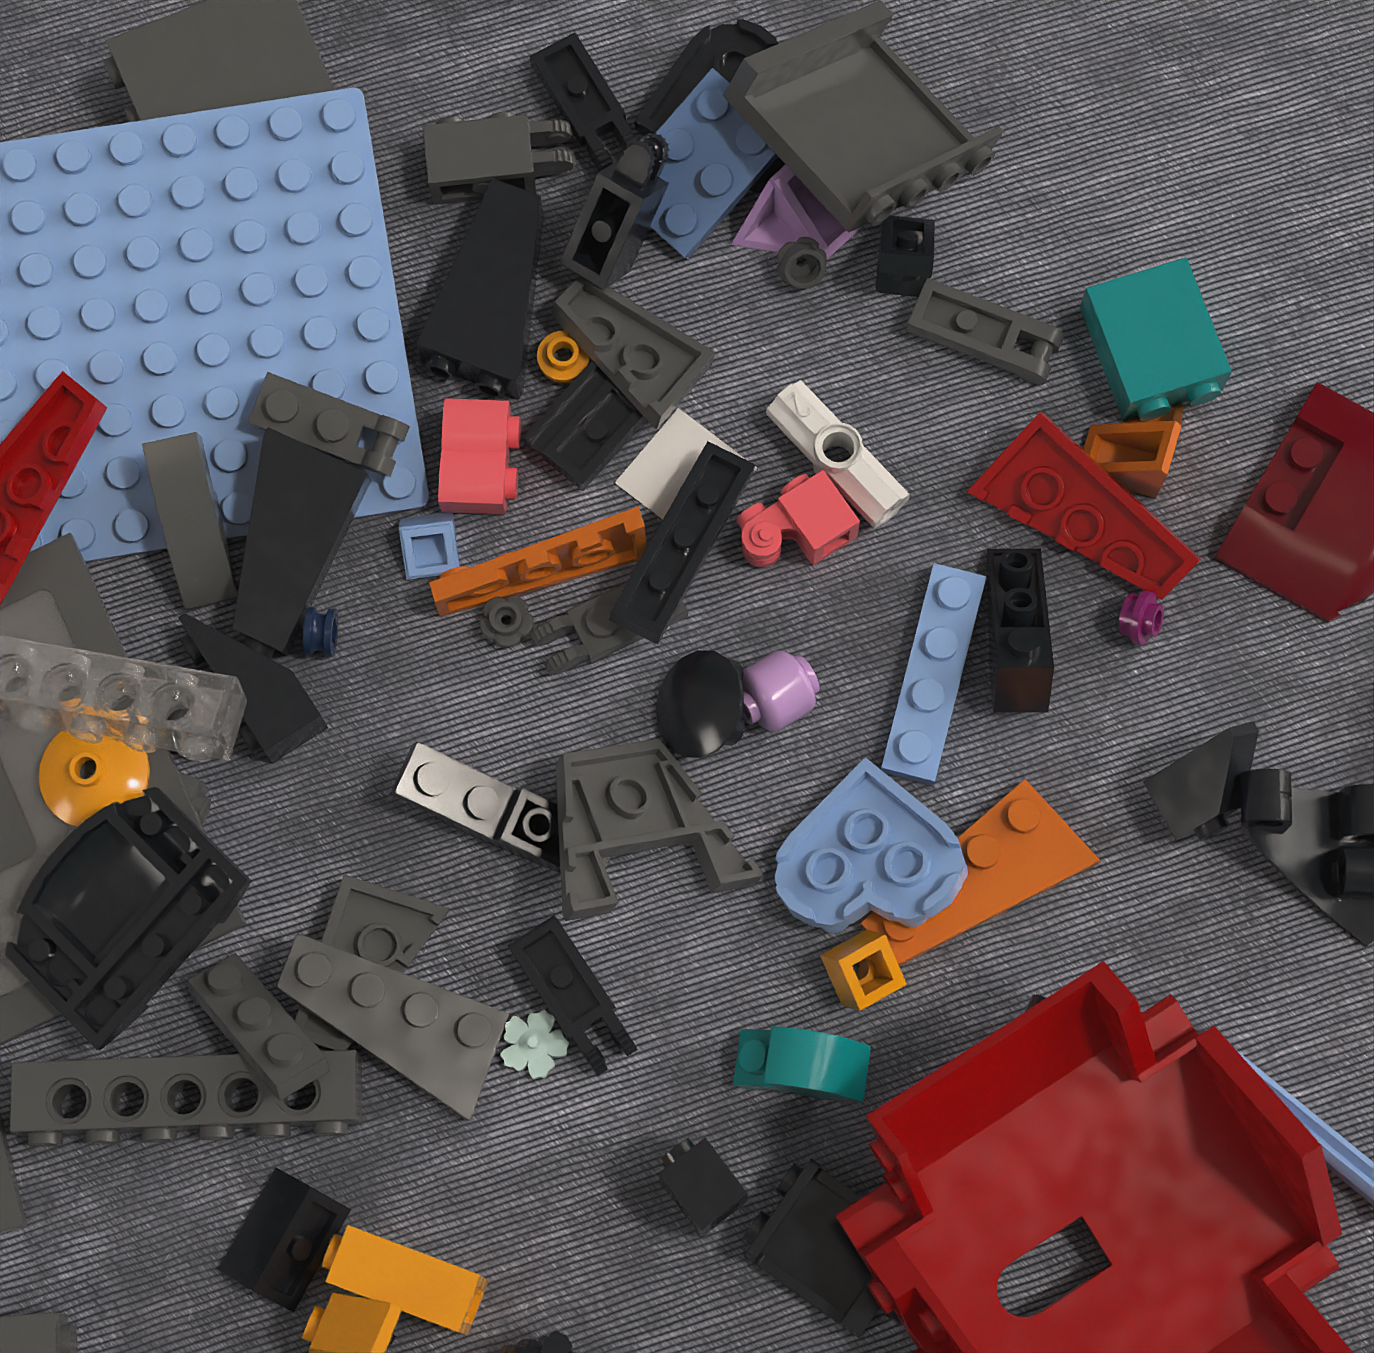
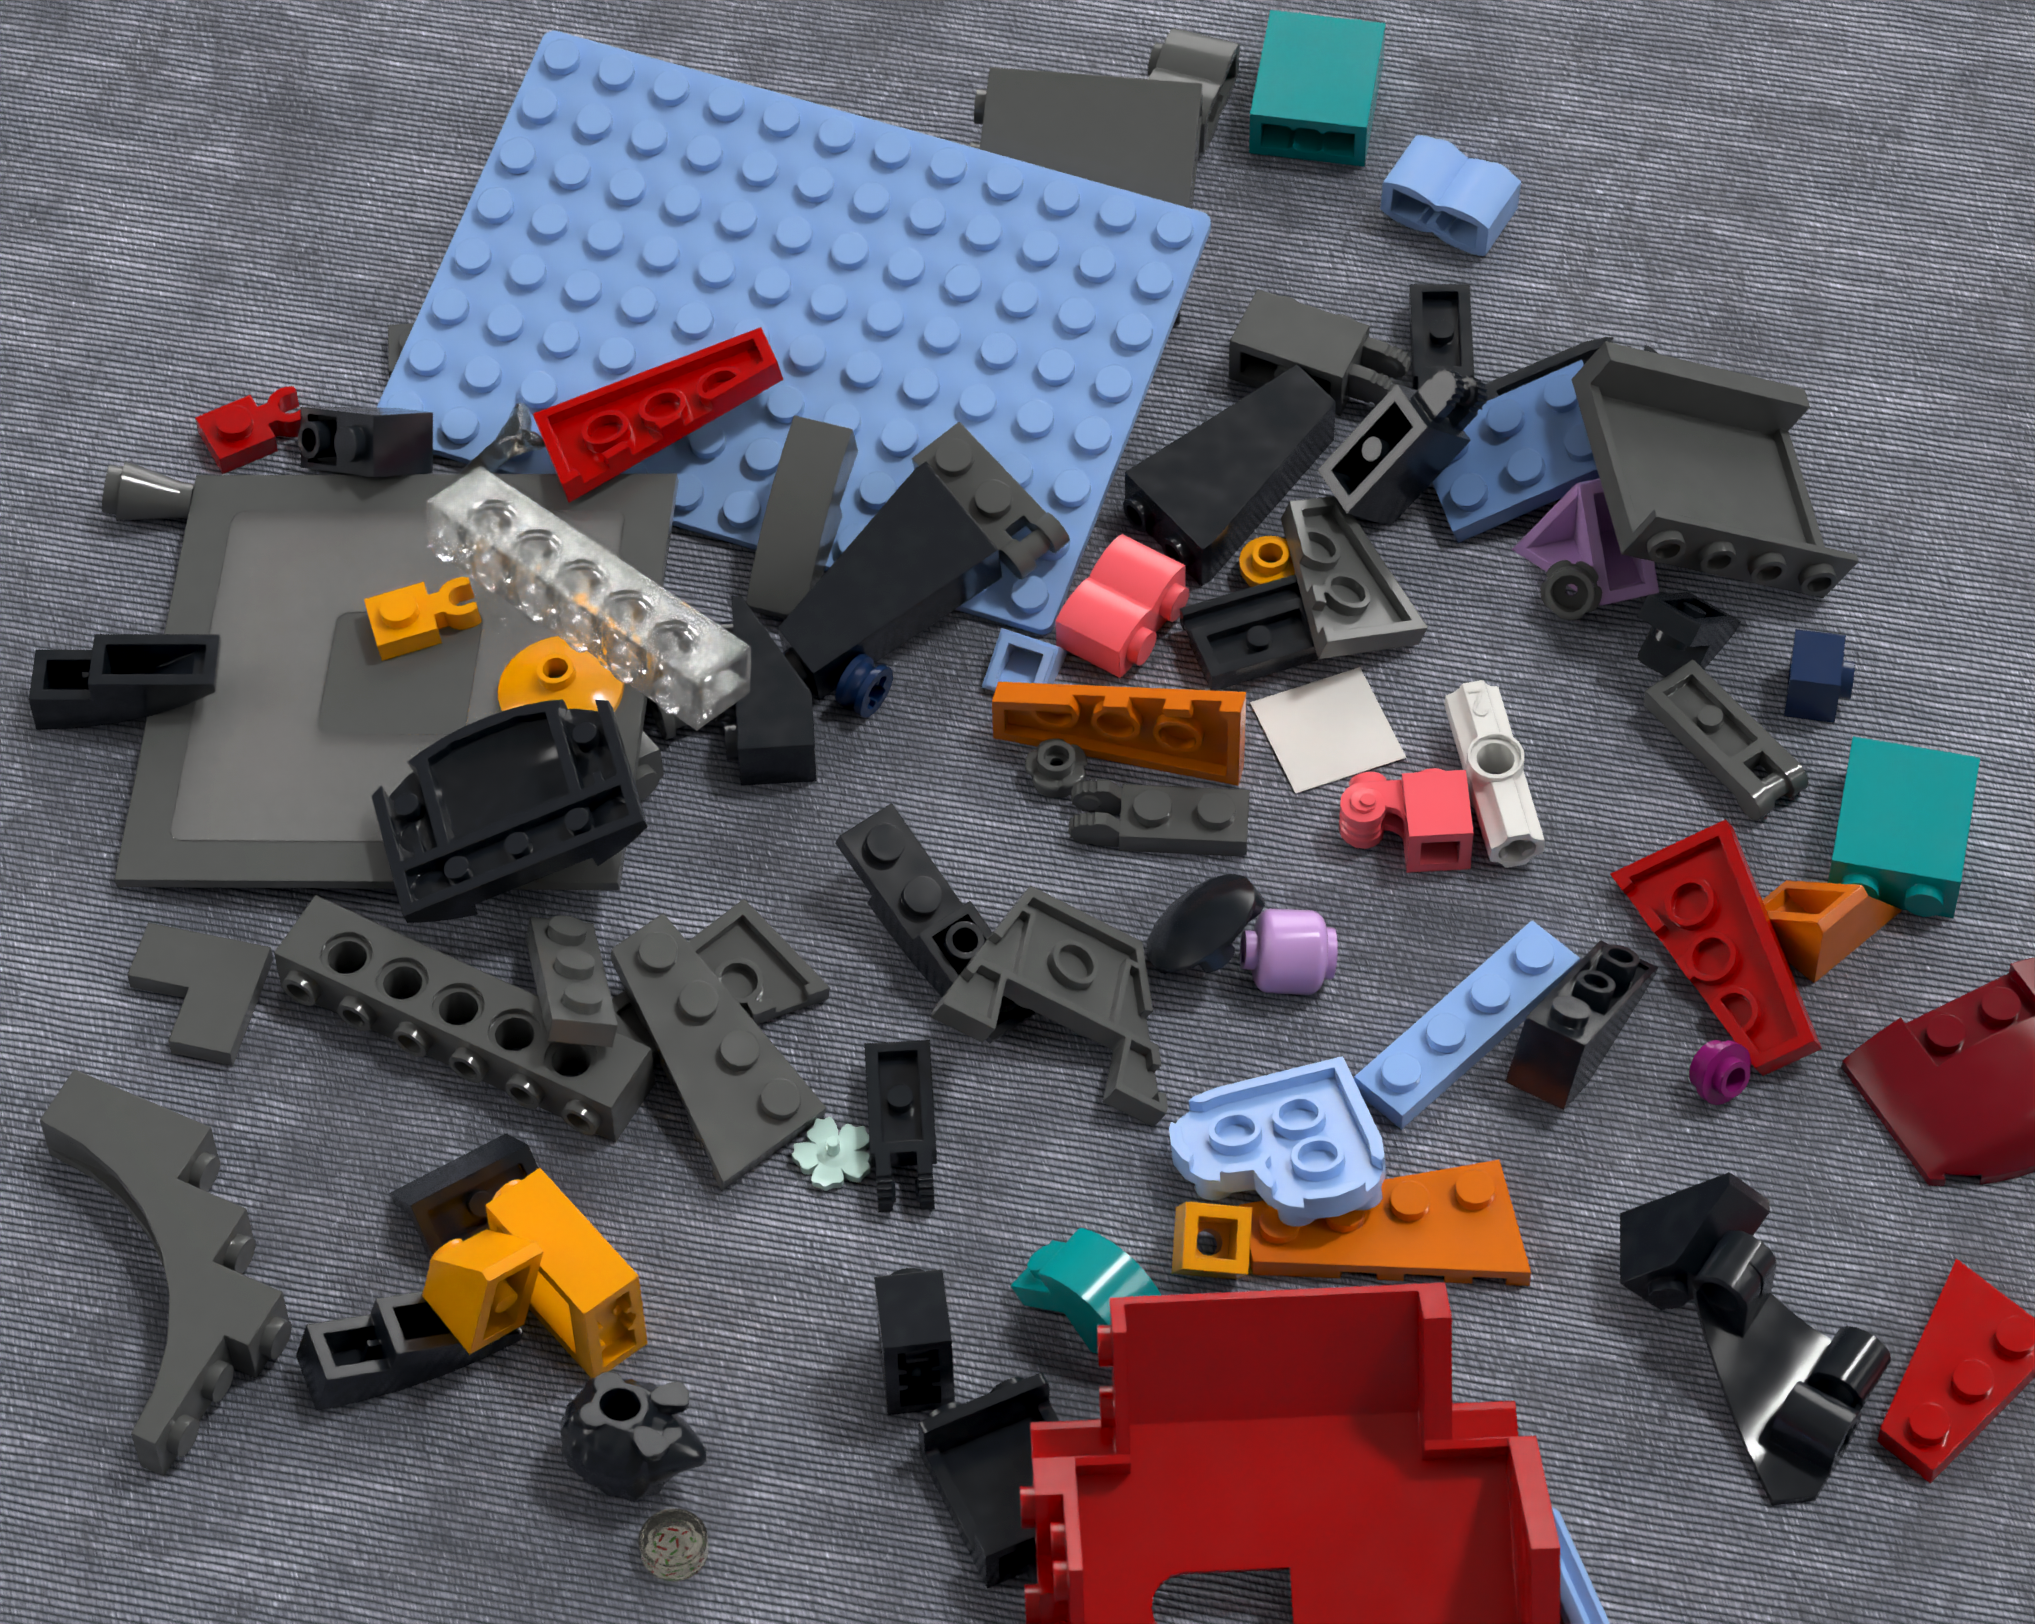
camera: 30 degrees right, 20 degrees down
(682, 543) = (1278, 769): black plate -> none
(1022, 242) = (1817, 676): none -> dark blue plate

